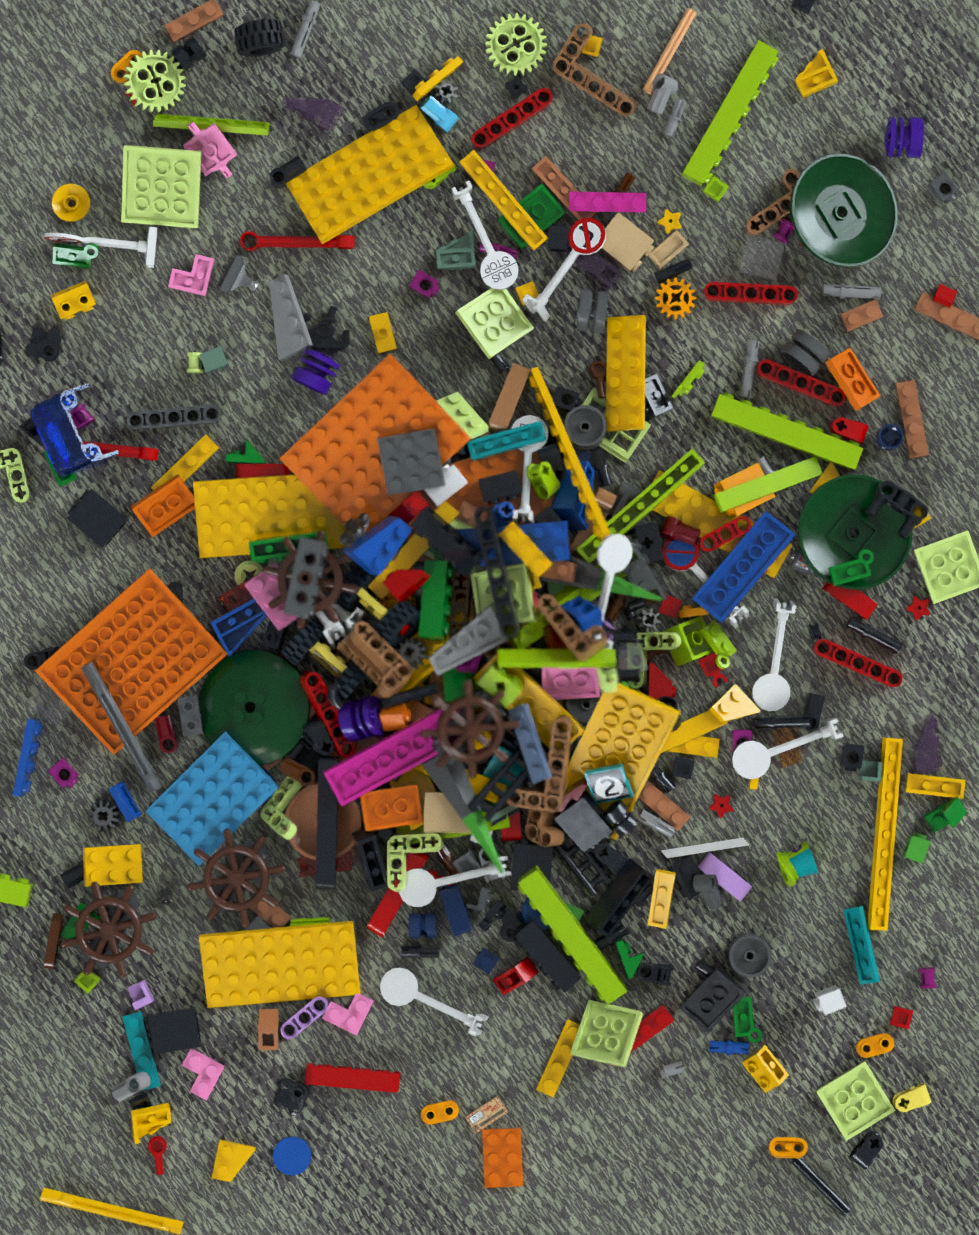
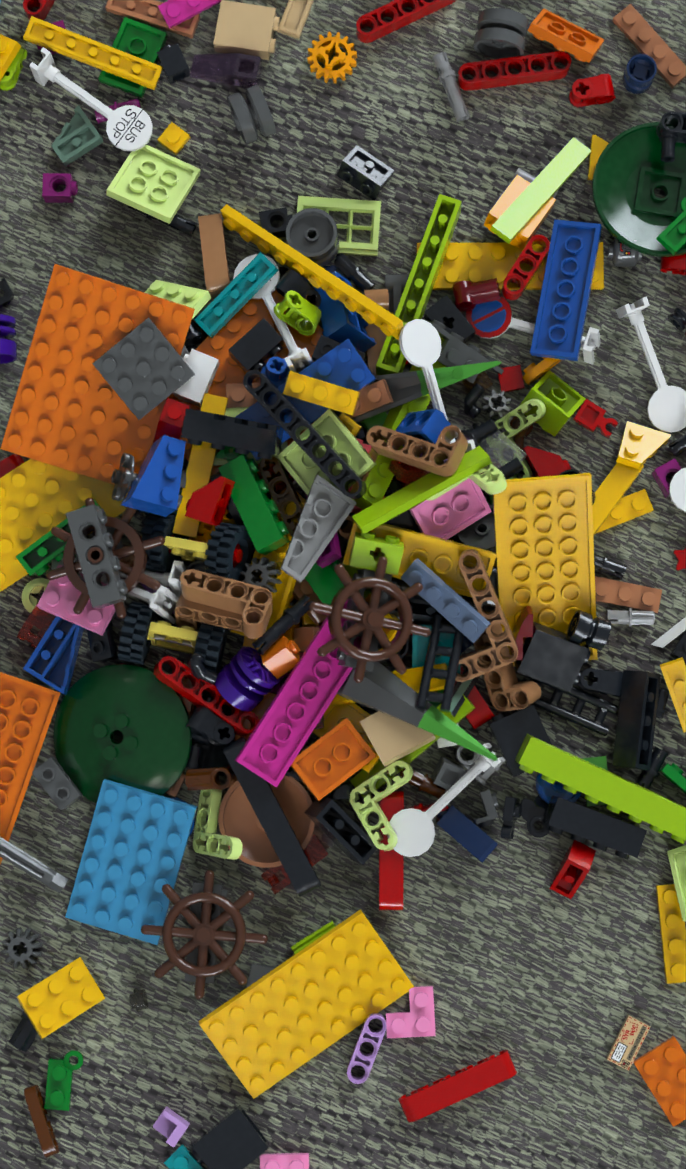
camera: 20 degrees left, 5 degrees down
(87, 982) = (103, 1143): lime tile -> none
(110, 930) = (97, 1072): reddish brown brick -> none
(125, 801) = (37, 919): blue plate -> none
(165, 732) = (41, 817): dark red piece -> none
(268, 1029) = (335, 1084): nougat slope -> none
(274, 916) = (270, 953): nougat plate -> none
(289, 1098) = (398, 1148): black plate -> none
(382, 333) = (39, 260): yellow plate -> none
(401, 987) = (454, 953): white piece -> none
(420, 951) = (453, 902): black axle -> none
(422, 925) = (439, 871): dark blue wheel -> none
(439, 1112) = (573, 1067): light orange plate -> none
(486, 960) = (530, 871): dark blue plate -> none
(585, 238) = (199, 45): white piece -> none
(598, 371) = (294, 176): reddish brown plate -> none
(608, 783) = (555, 598): slope -> none
(615, 606) = (452, 404): reddish brown pin -> none
(625, 373) = (324, 160): yellow plate -> none
(673, 270) = (313, 31): black axle -> none
(683, 768) = (623, 541): black plate -> none
(686, 385) = (395, 140): lime hinge -> none
(719, 643) = (585, 387): lime hinge -> none
(787, 432) = (528, 128): lime brick -> none

